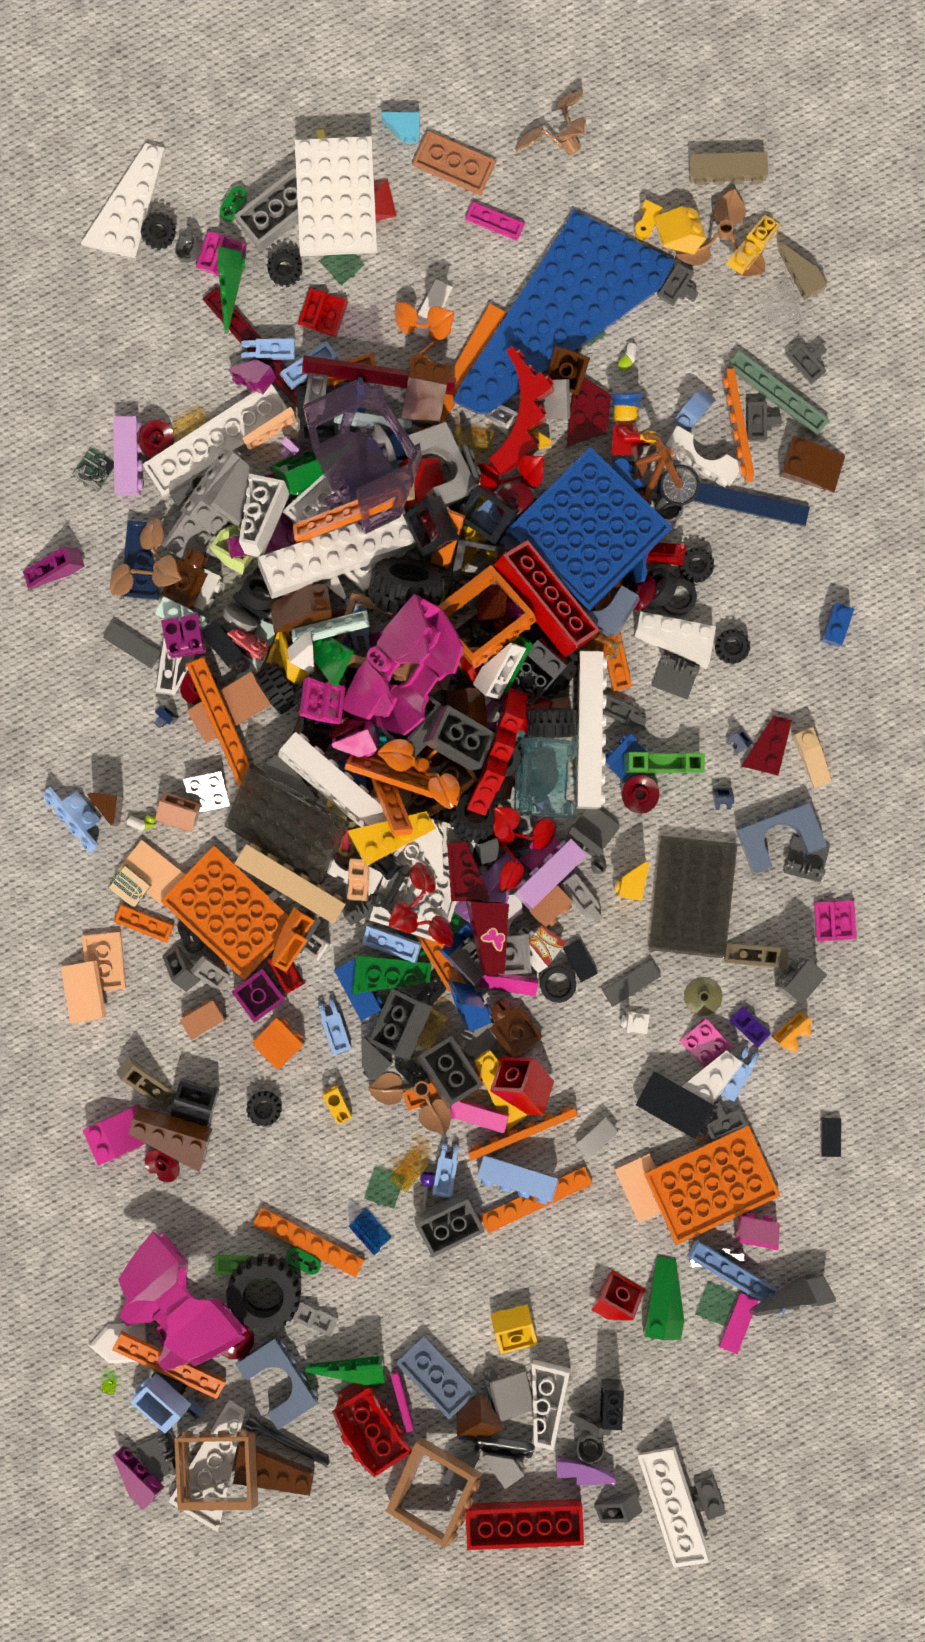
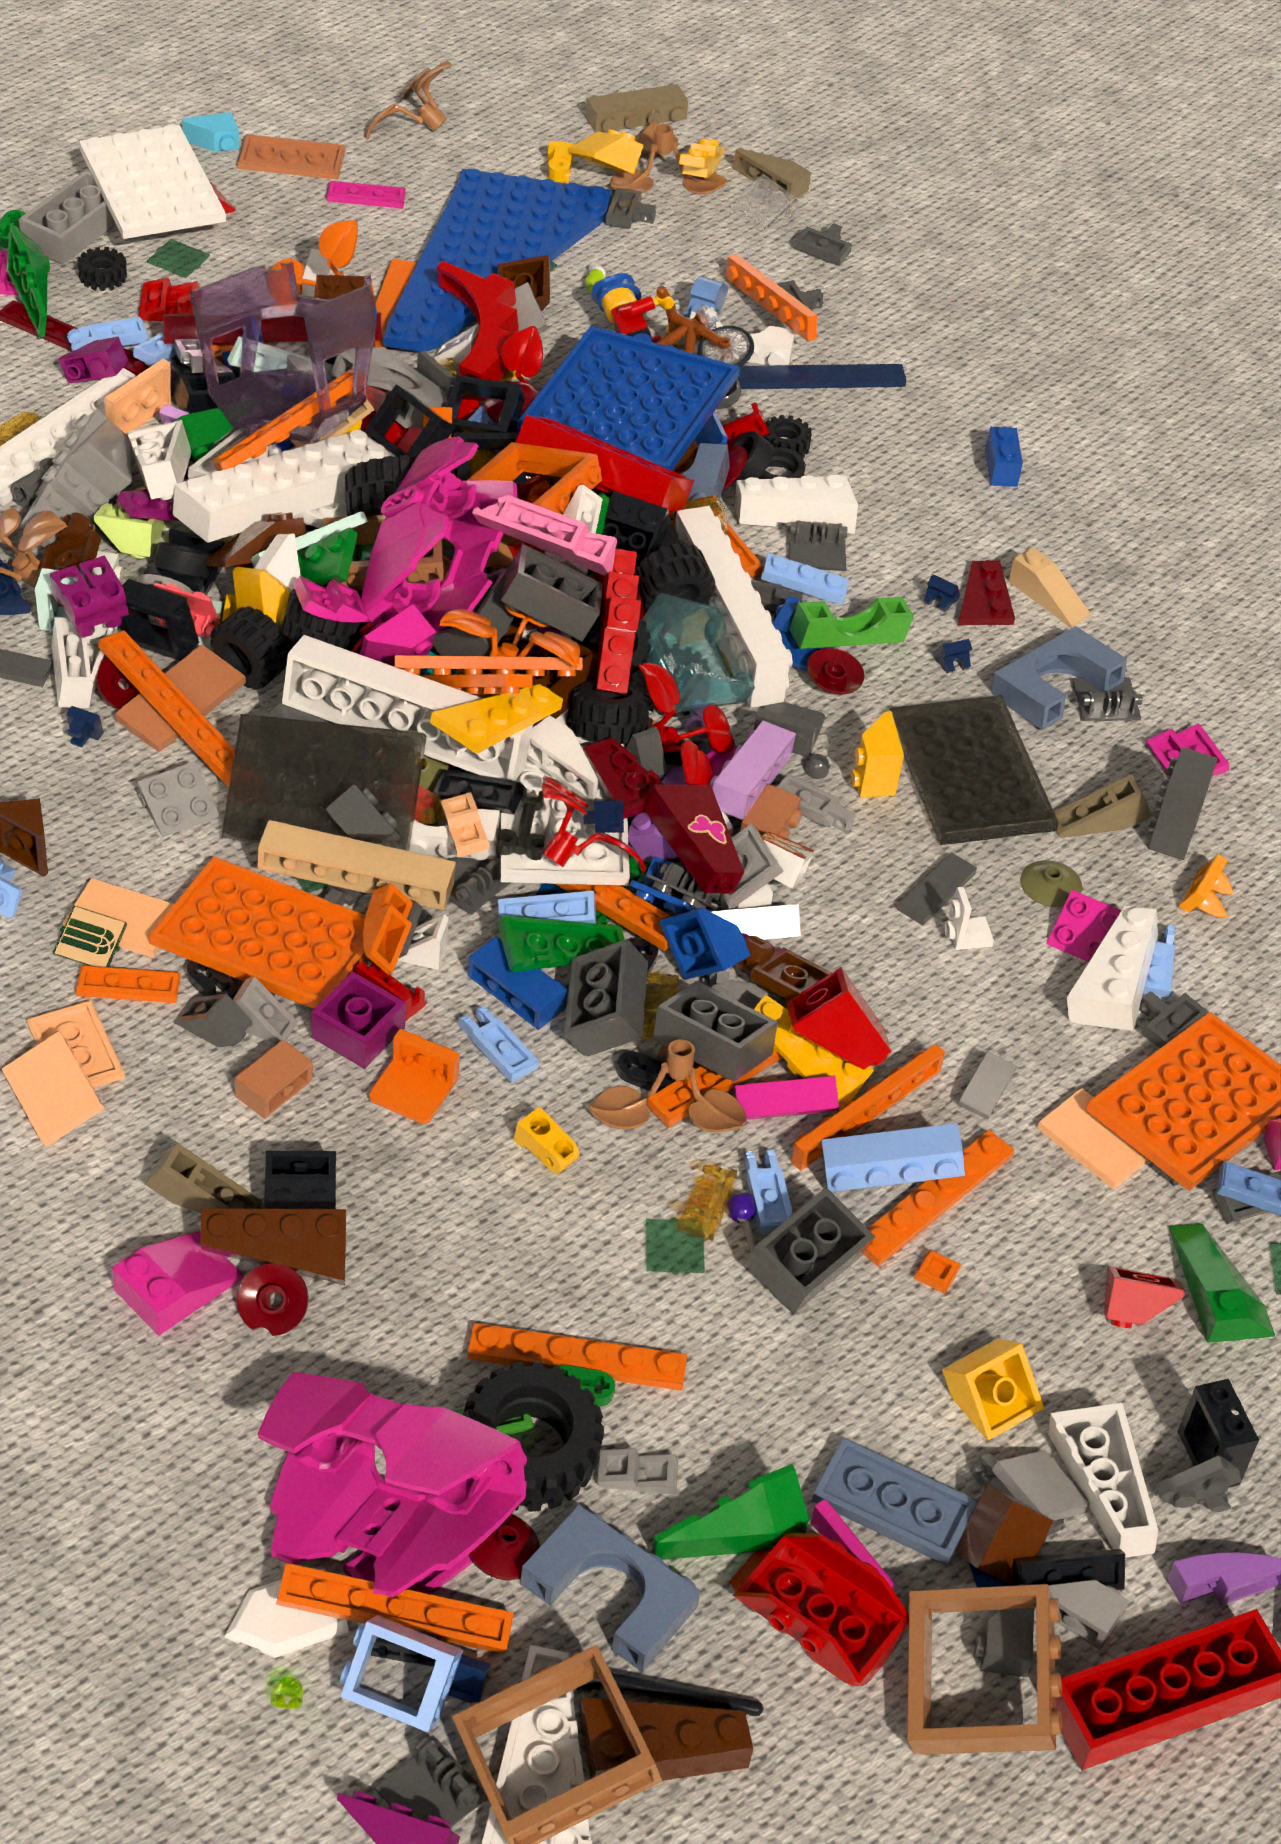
camera: 30 degrees left, 40 degrees down
(142, 824) = (75, 861): arm -> none
(178, 812) = (141, 826): brick -> none
(252, 1108) = (423, 1162): black tyre -> none
(298, 864) = (360, 818): none -> dark grey slope
(369, 1231) = (676, 1313): clear blue panel -> none
(373, 1060) = (581, 1066): dark grey slope -> none
(440, 905) = (606, 816): none -> dark blue tile
(468, 696) = (550, 532): none -> bright pink wedge
(517, 1246) = (937, 1271): none -> orange tile
(572, 984) = (827, 927): black tyre -> none
(580, 961) = (846, 879): black tile -> none
(588, 413) = (566, 328): dark red wing -> none
(590, 1454) = (1212, 1524): dark grey hair -> none
(654, 704) = (804, 578): none -> light blue plate
(677, 1106) = (1090, 993): black panel -> none
(741, 638) = (880, 494): black tyre -> none
(750, 1027) = (1134, 894): dark purple slope -> none
(778, 393) = (810, 276): sand green plate -> none
(812, 464) = (879, 325): reddish brown slope -> none

